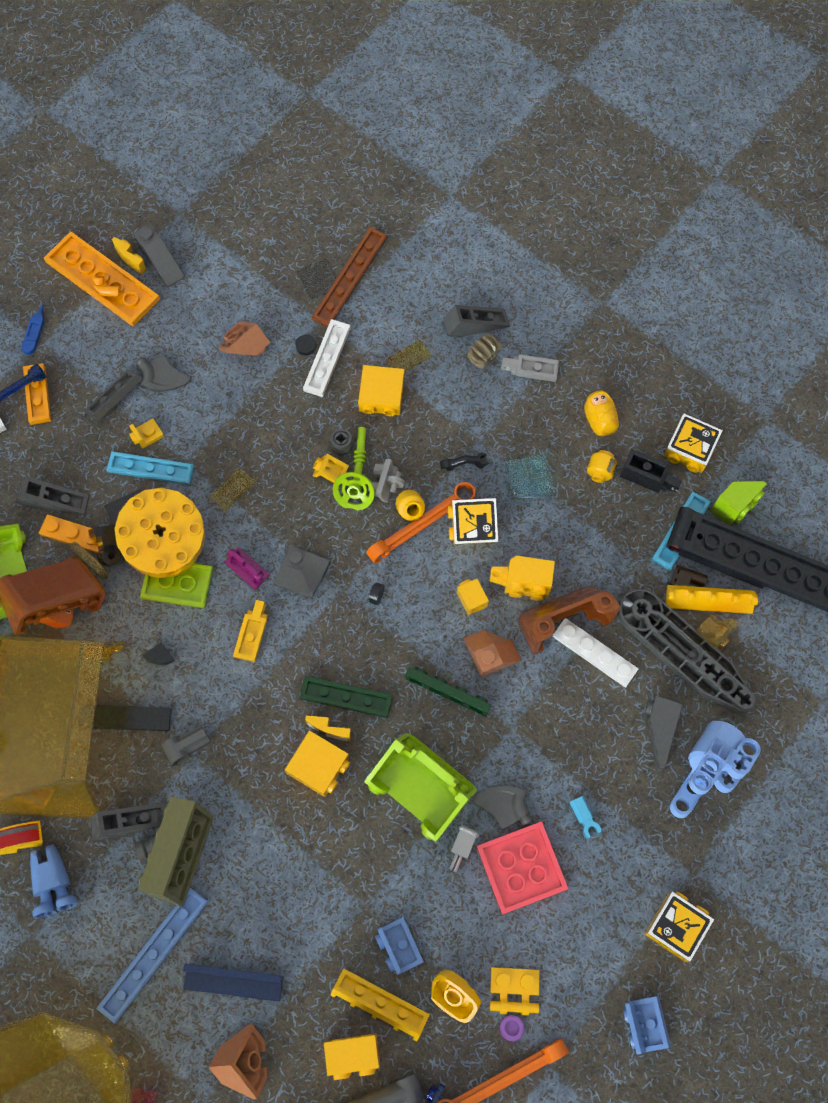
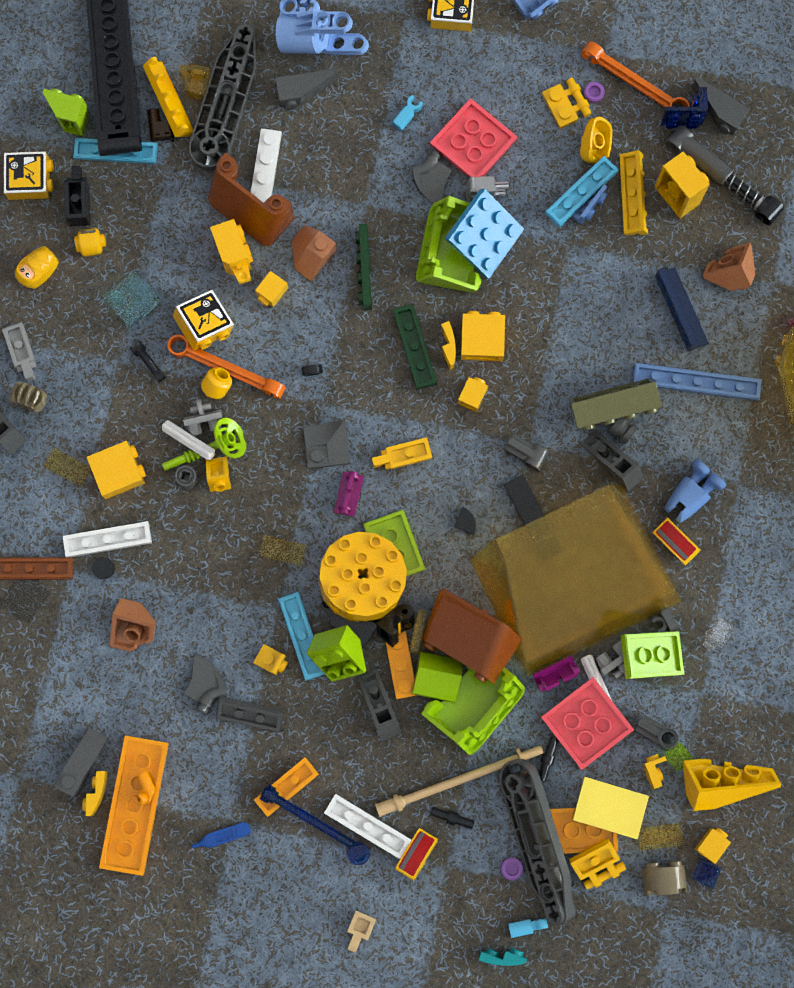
camera: 115 degrees left, 10 degrees up
(40, 552) = (437, 677): none -> lime slope
(113, 482) = (337, 653): none -> lime slope
(269, 725) = (473, 393): none -> yellow brick
(373, 458) = (188, 440): none -> white axle
(408, 947) = (581, 191): none -> medium azure tile
(416, 819) = (484, 233): none -> plate

